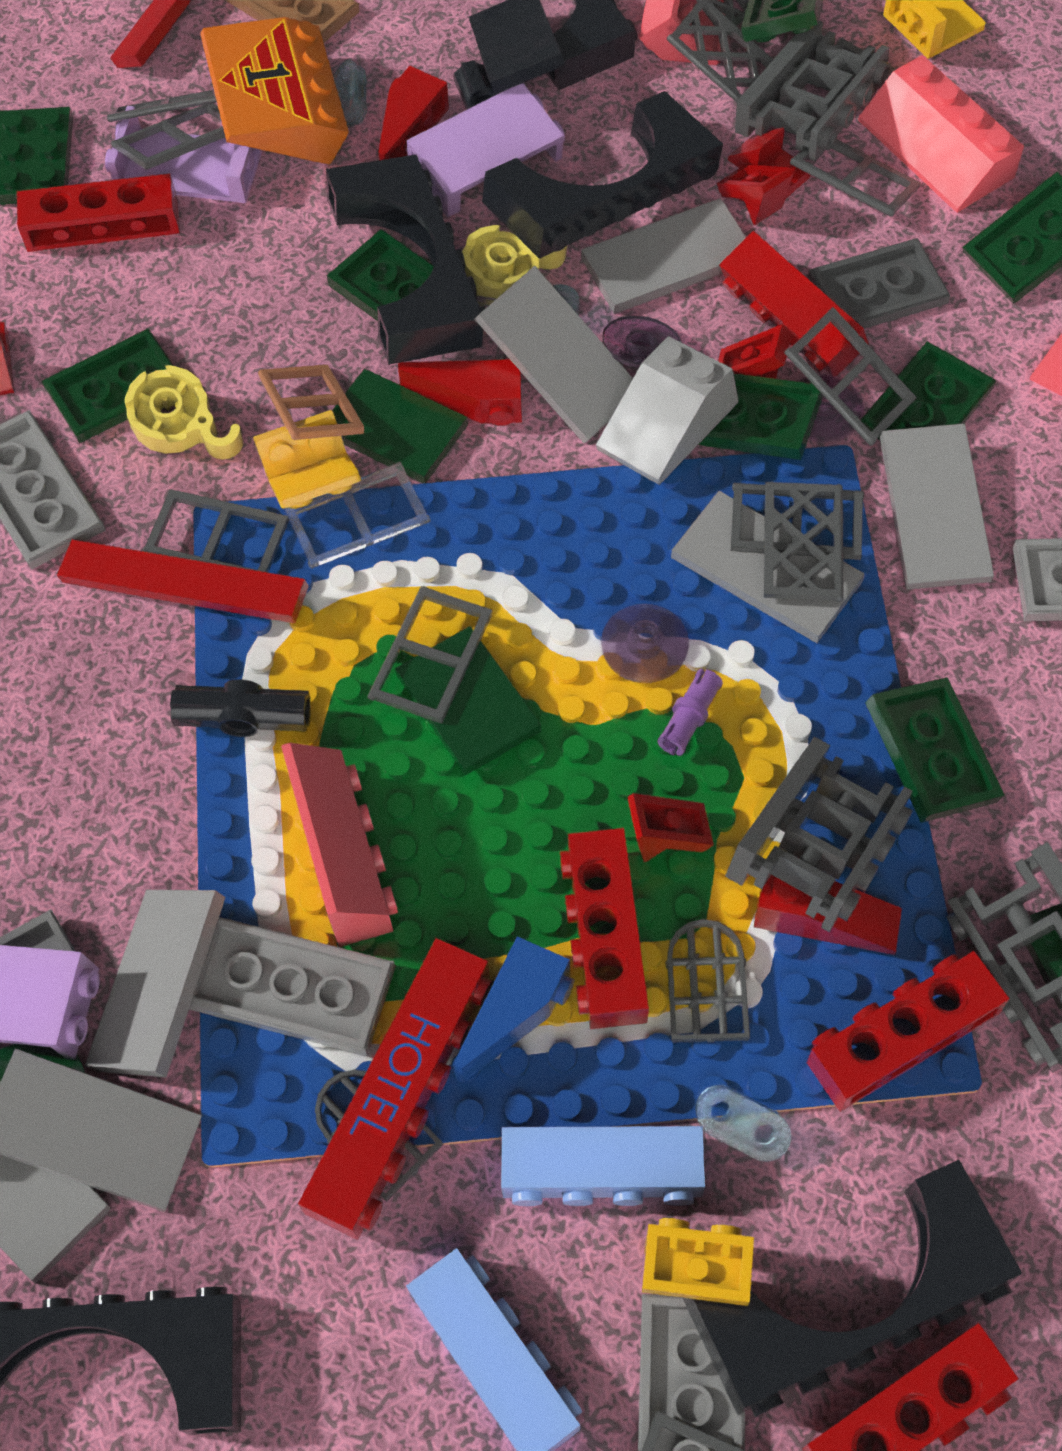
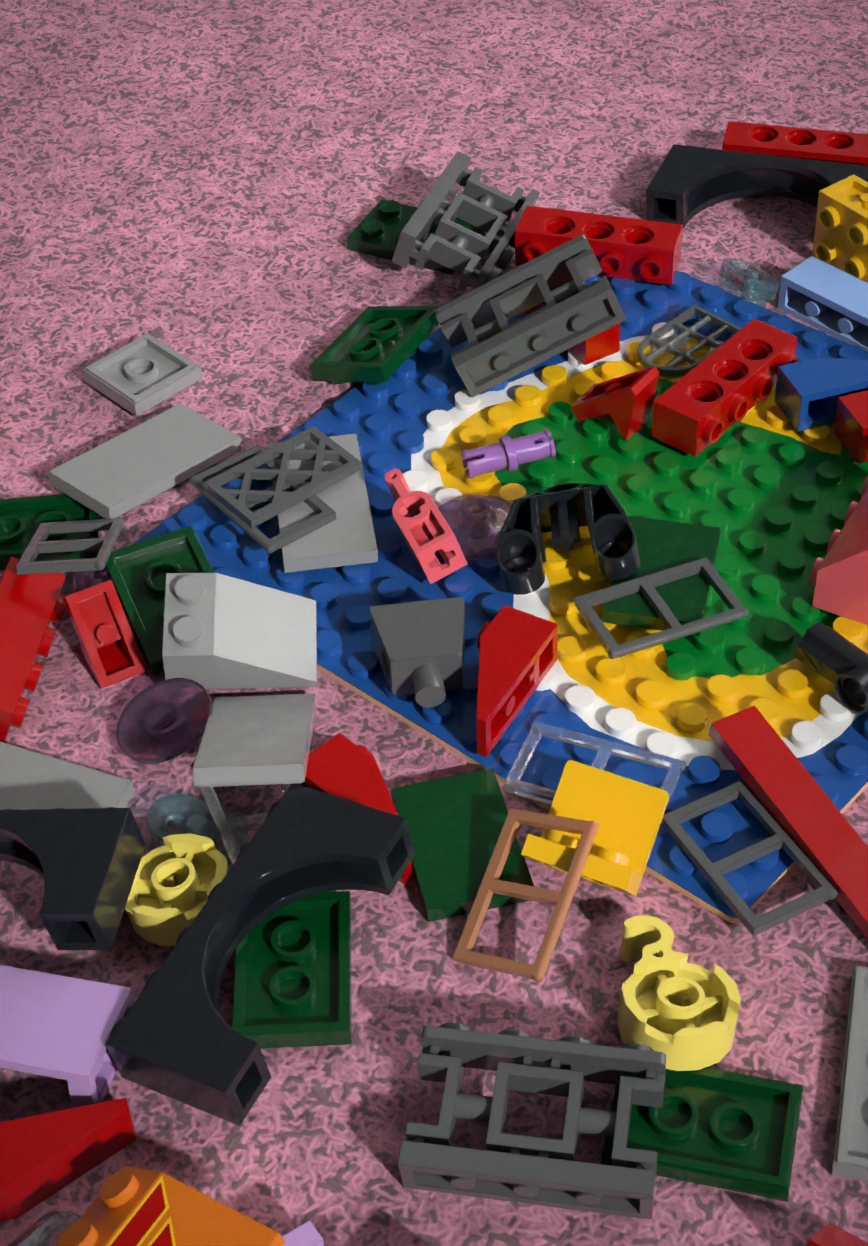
camera: 135 degrees left, 20 degrees down
(175, 283) = (527, 1166): none -> dark grey fence
(478, 524) = (512, 663): none -> red slope
(546, 496) = (421, 647): none -> dark grey torso
(573, 661) = (562, 512): none -> black connector
(661, 583) = (424, 529): none -> coral piece

